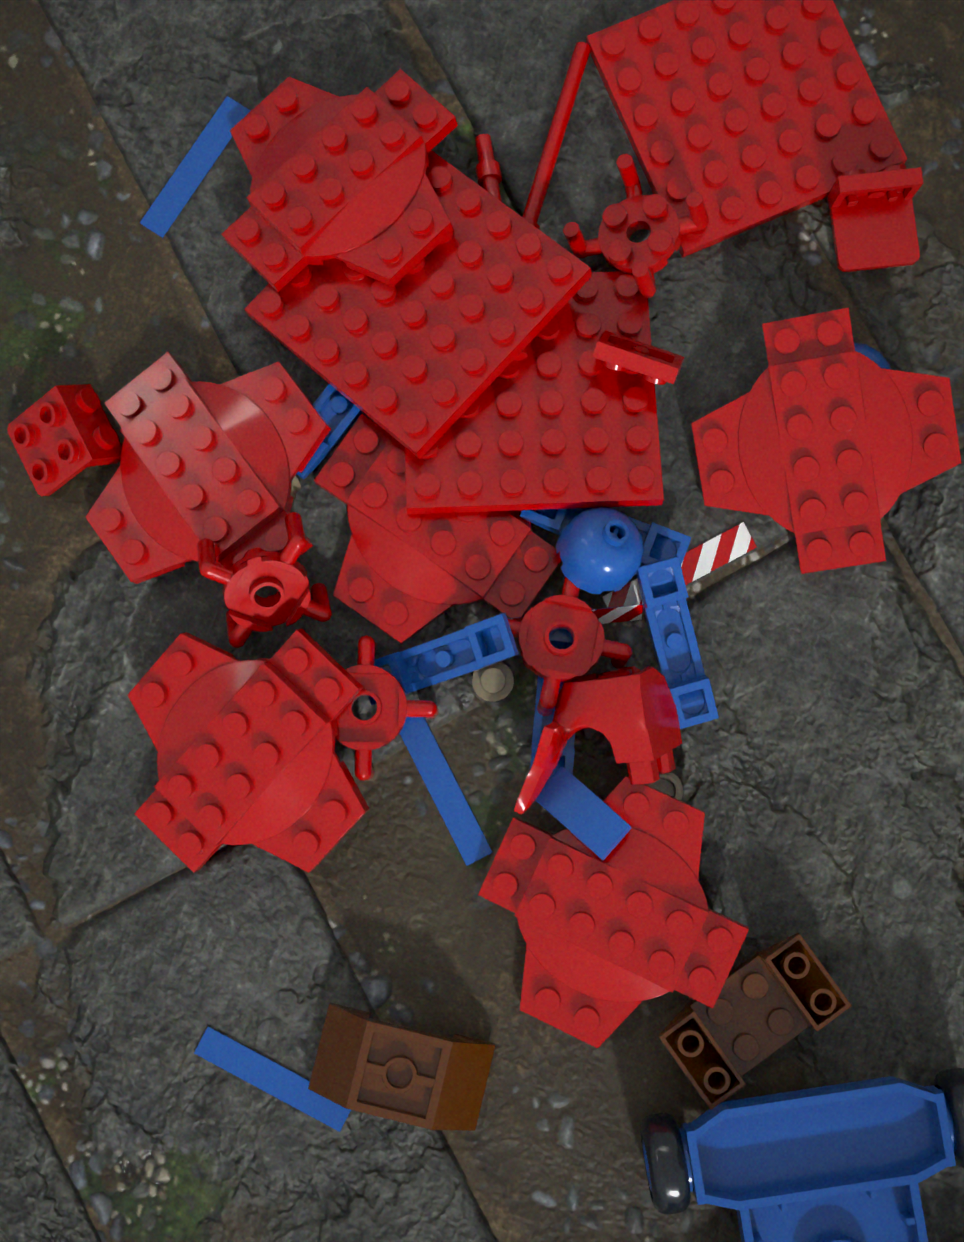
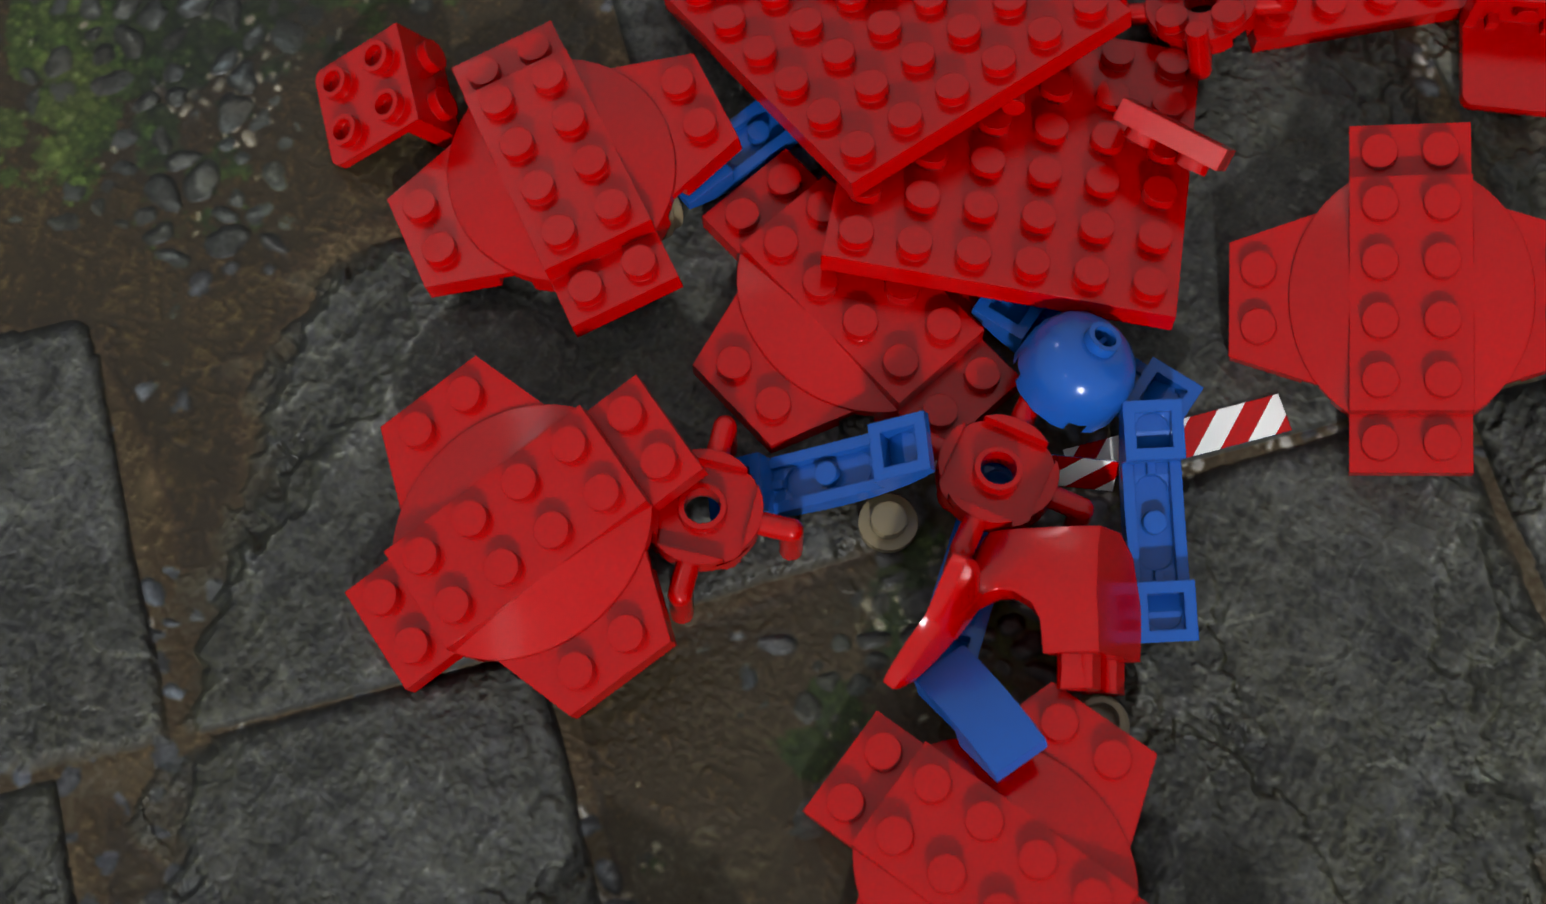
camera: 10 degrees right, 15 degrees down
(260, 569) = (611, 287): red plate -> none
(444, 790) = (786, 657): blue sticker -> none

